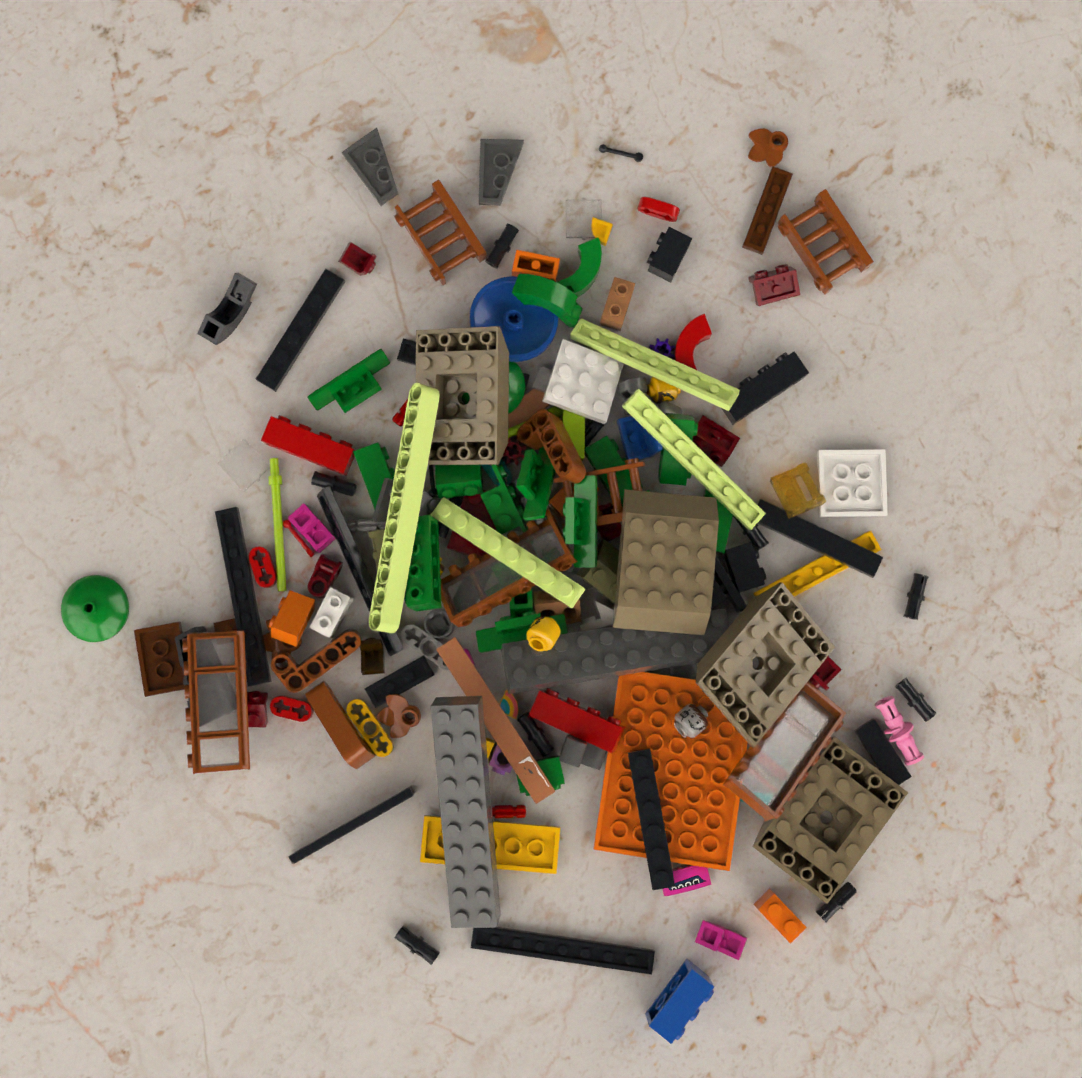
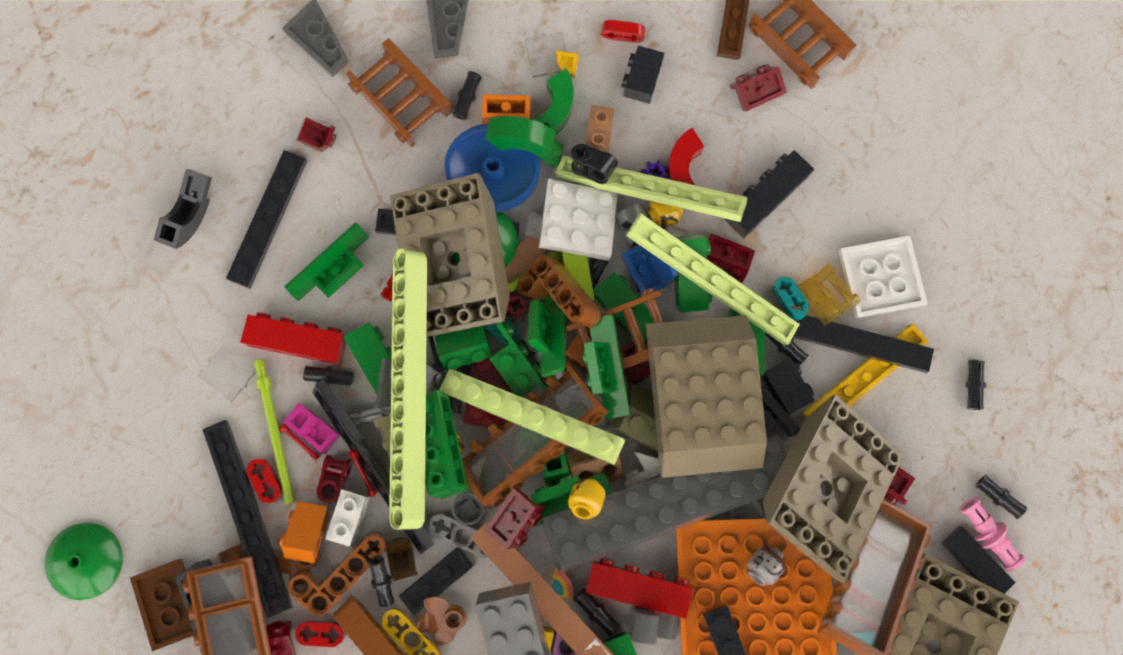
camera: 10 degrees left, 5 degrees down
(352, 673) = (381, 581): none -> black pin
(355, 593) = (371, 490): none -> red hinge
(478, 640) = (515, 519): none -> dark red bracket
(608, 334) = (595, 165): none -> black piece
(766, 486) = (793, 297): none -> teal beam

